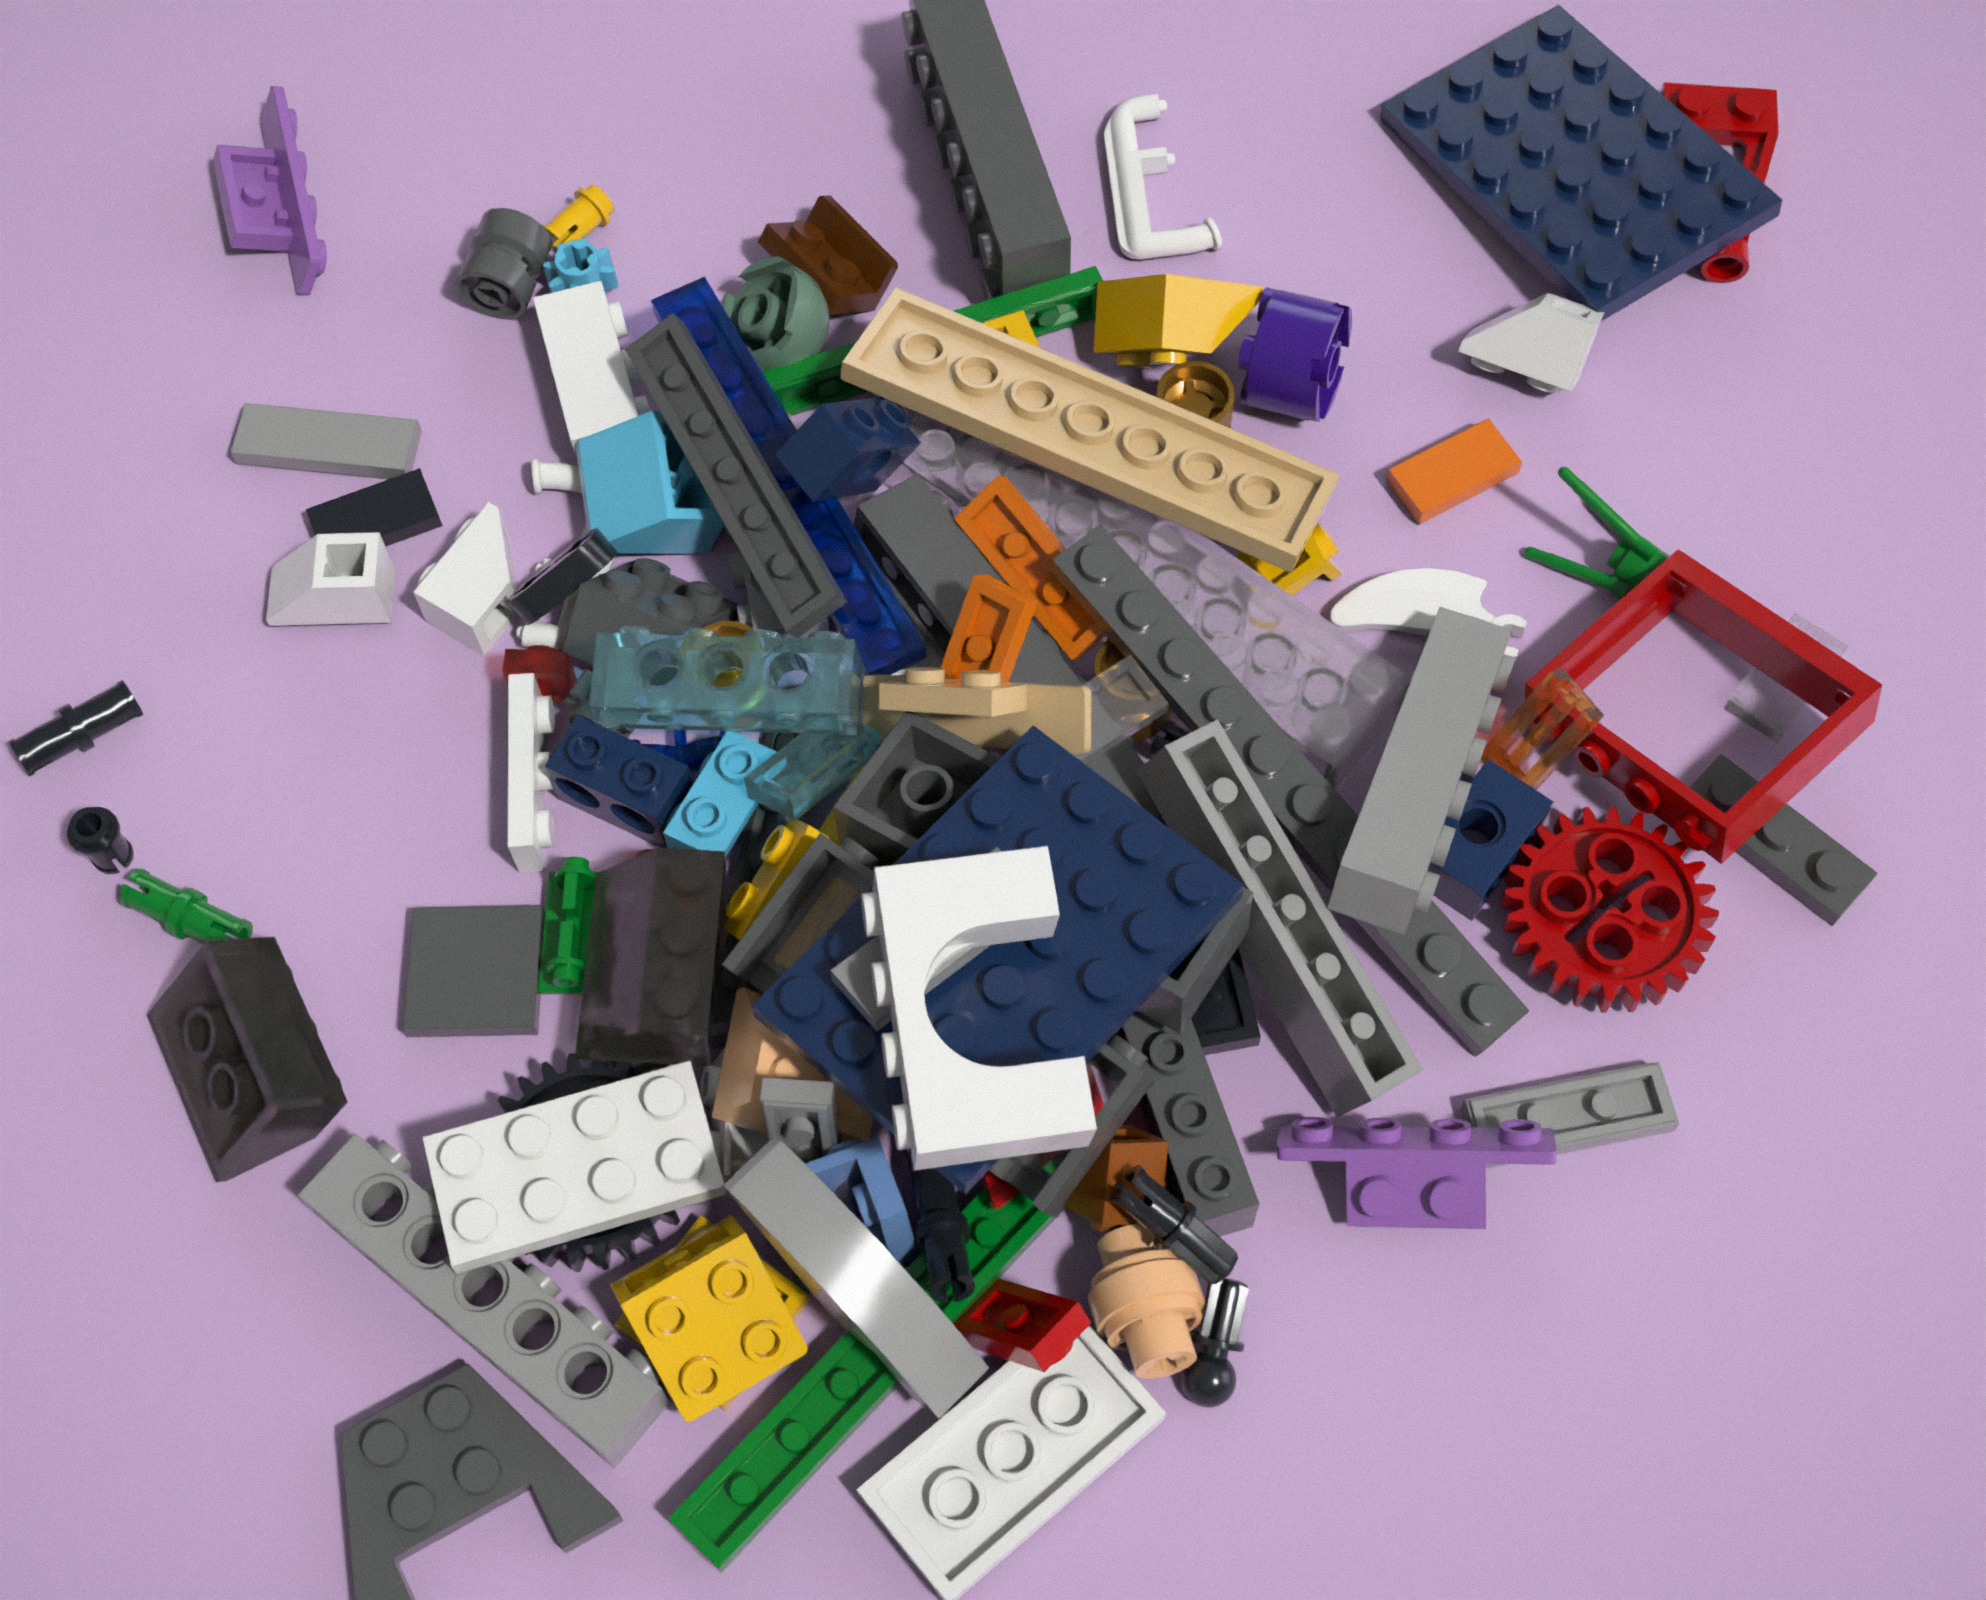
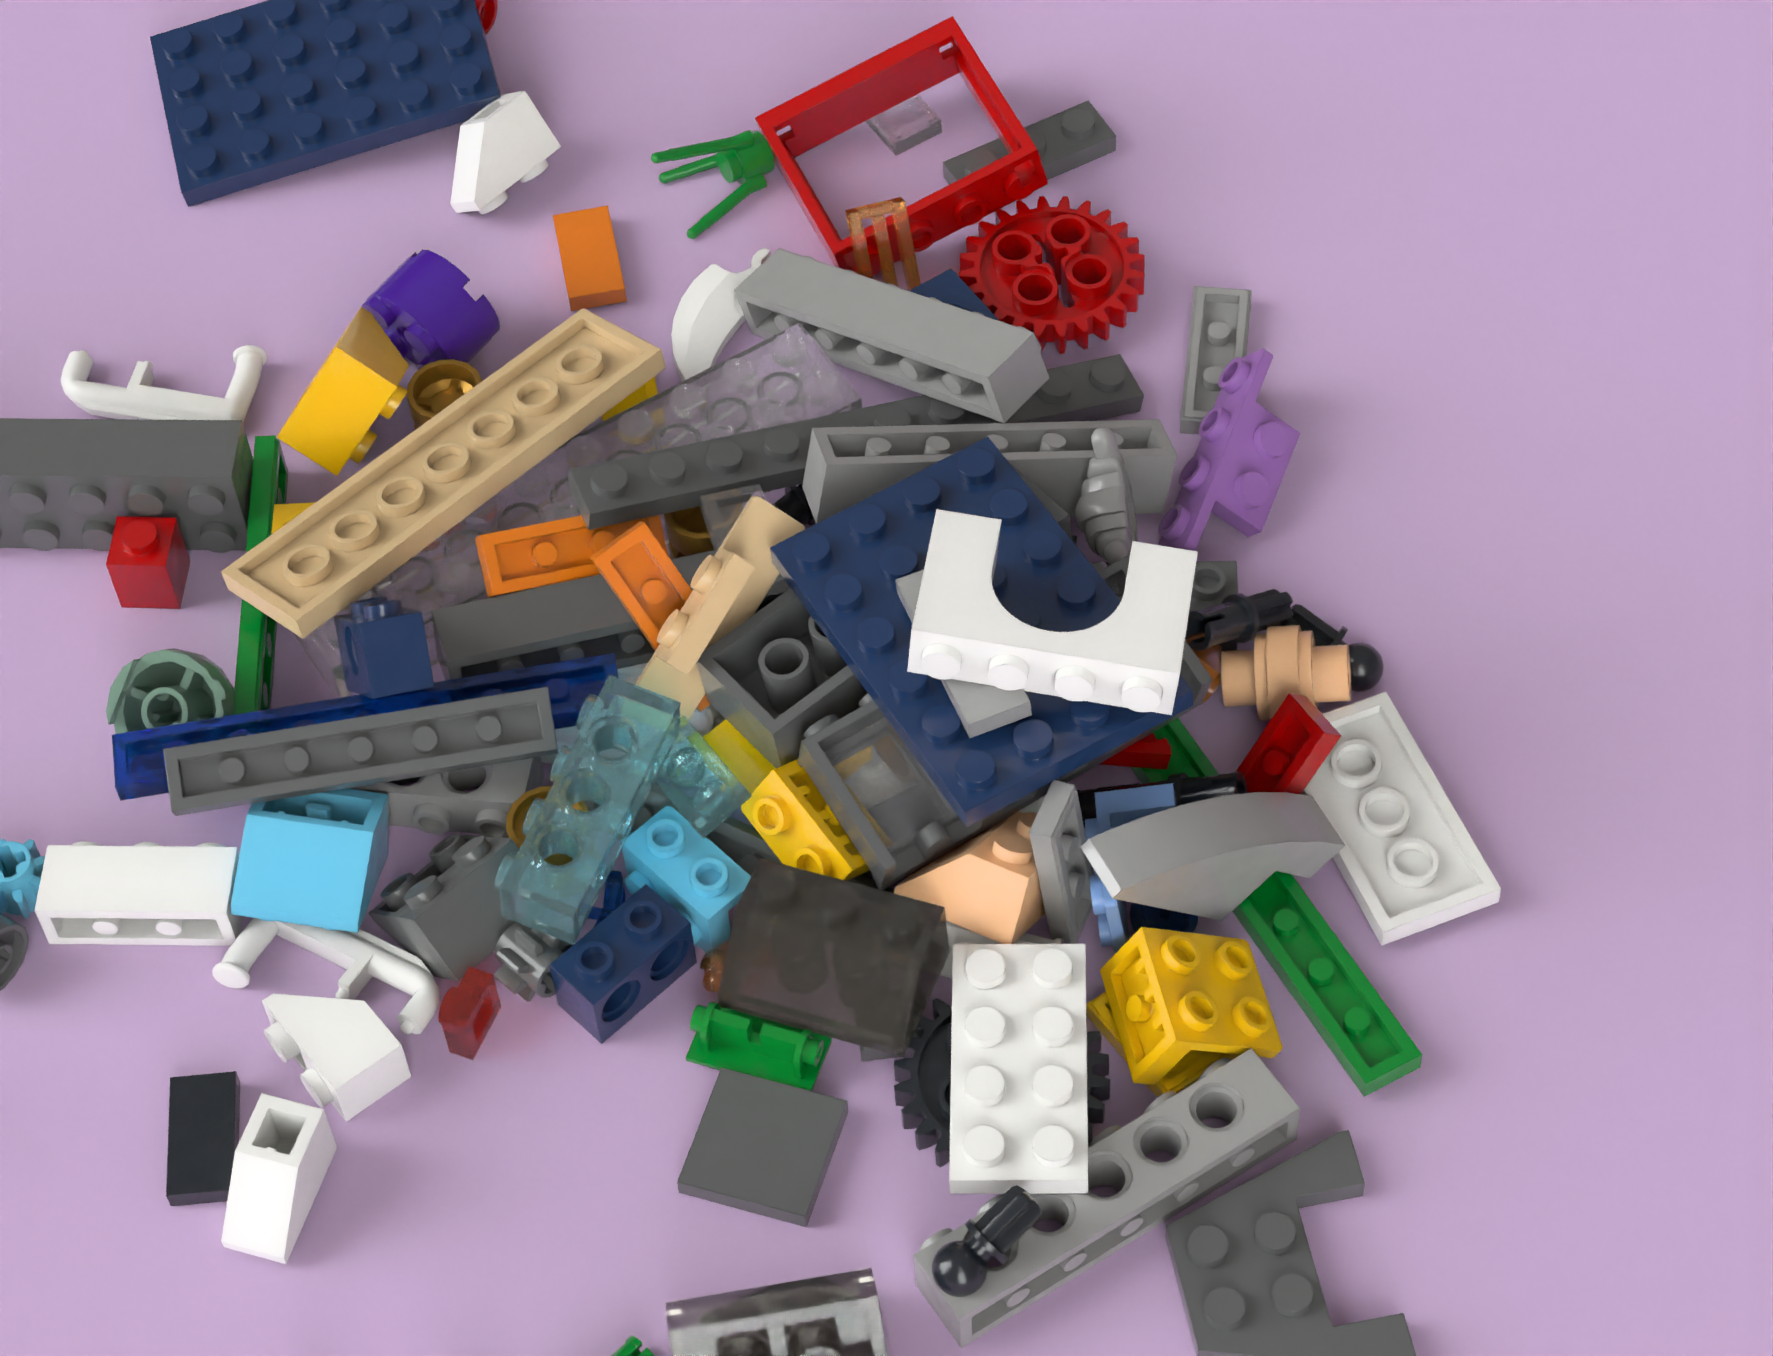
camera: 70 degrees left, 10 degrees down
(325, 441) = (85, 1167): light grey tile -> none
(365, 1191) = (962, 1265): none -> black axle
(529, 823) = (573, 1046): white plate -> none
(562, 576) = (381, 952): black beam -> none
(835, 254) = (96, 649): reddish brown bracket -> none
(938, 242) = (148, 562): none -> red brick
(1267, 1053) = (1106, 501): none -> light grey piece

